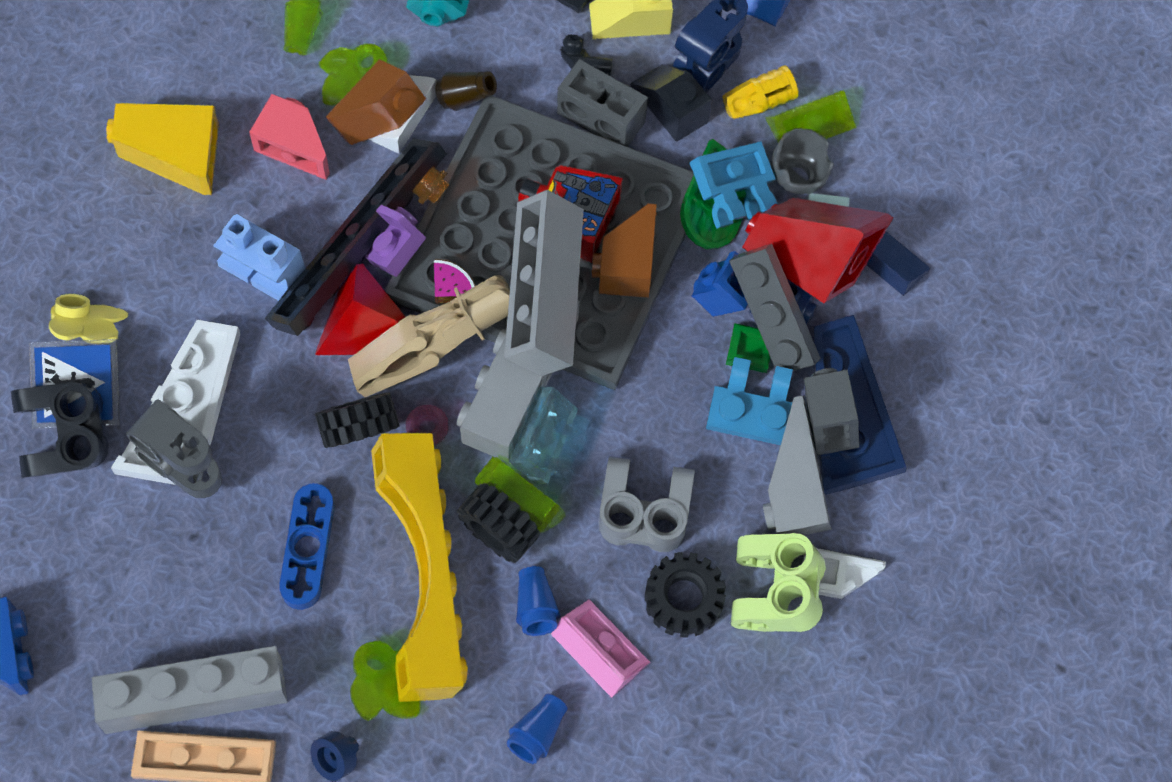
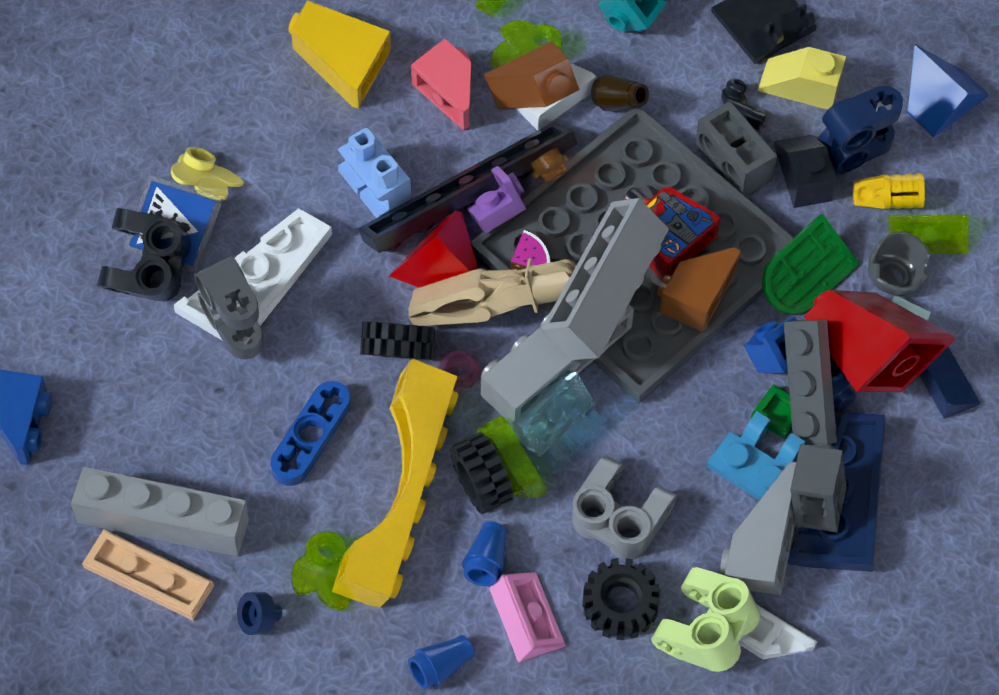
camera: 25 degrees right, 5 degrees down
(731, 171) = (827, 248): dark azure plate -> none

